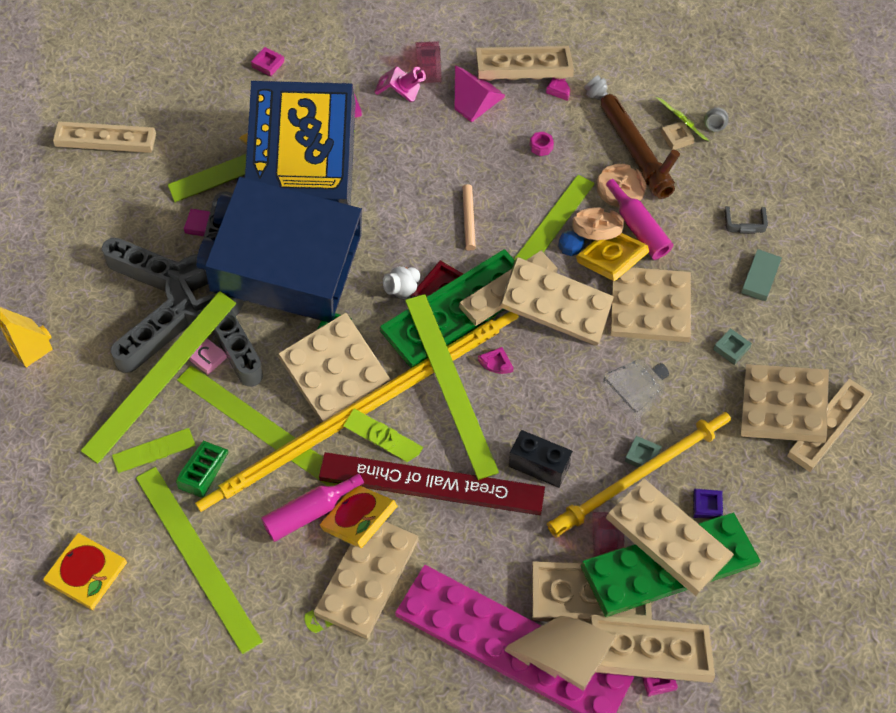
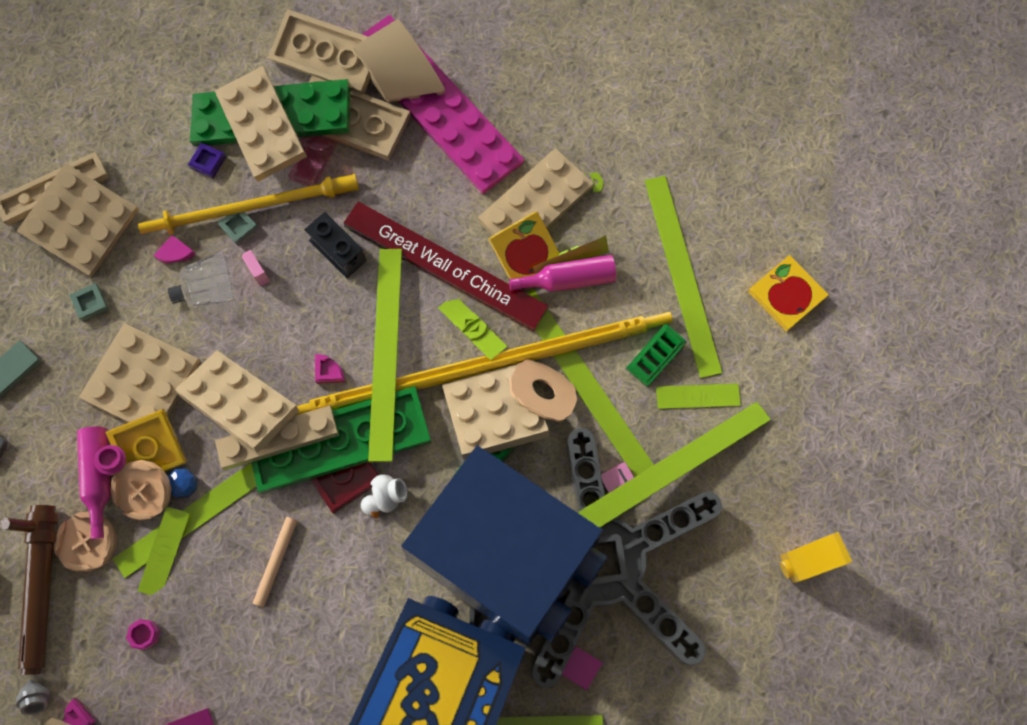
camera: 160 degrees left, 15 degrees up
(307, 532) = (586, 251): none -> piece
(312, 379) = (552, 409): none -> light nougat piece
(558, 198) = (163, 551): none -> lime piece
(602, 416) = (255, 268): none -> bright pink tile
(631, 227) = (110, 460): none -> dark pink plate
(685, 411) = (173, 251): none -> dark pink tile

